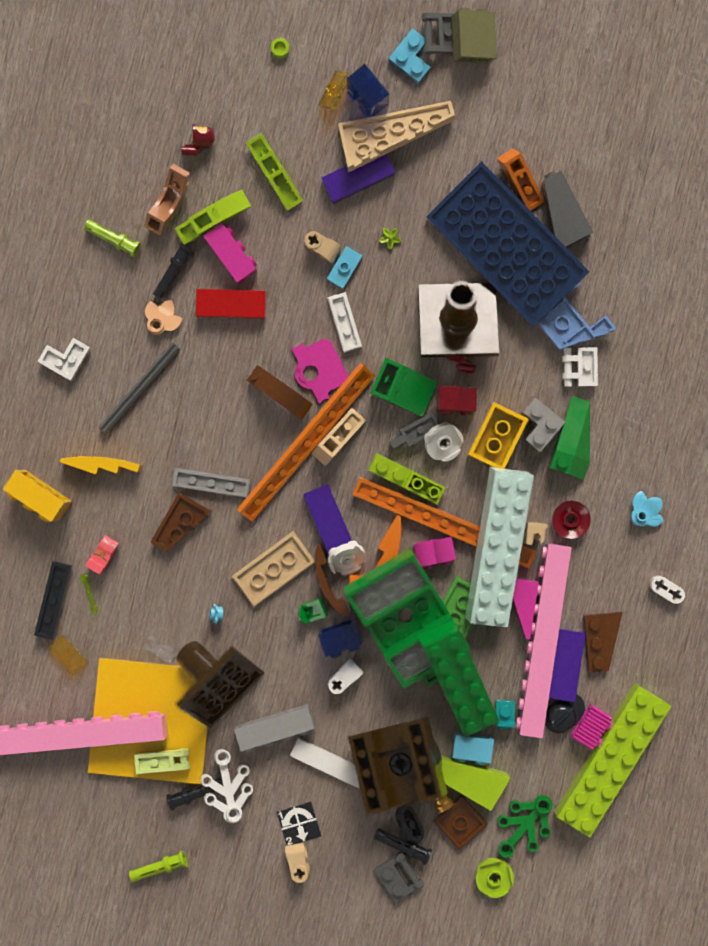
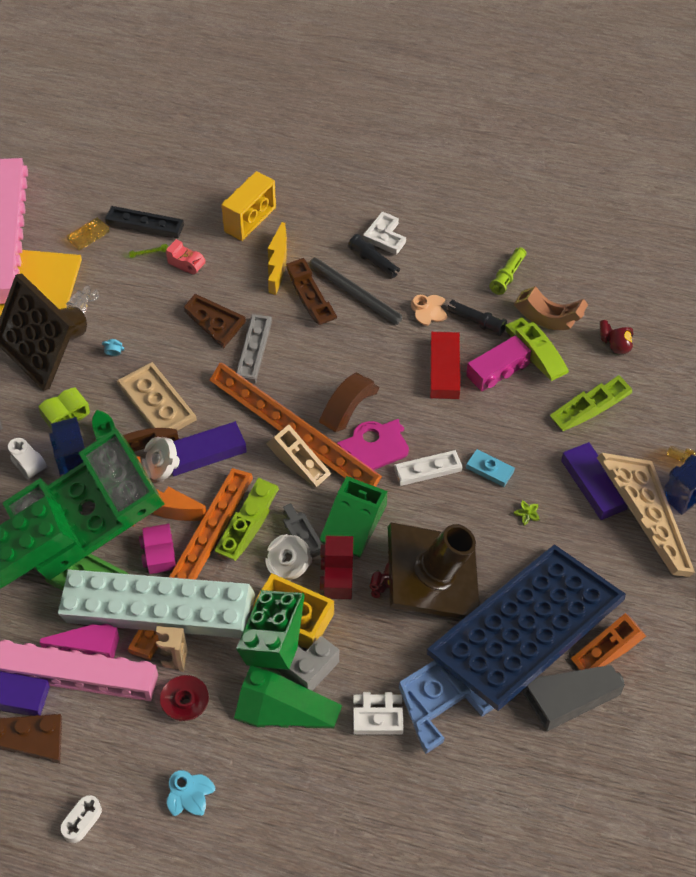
camera: 90 degrees right, 35 degrees down
(89, 376) = (367, 251): none -> black pin
(146, 430) = (309, 293): none -> reddish brown slope
(289, 651) = (64, 406): none -> lime brick
(326, 248) = (512, 443): tan piece -> none
(526, 450) = (272, 630): none -> green slope

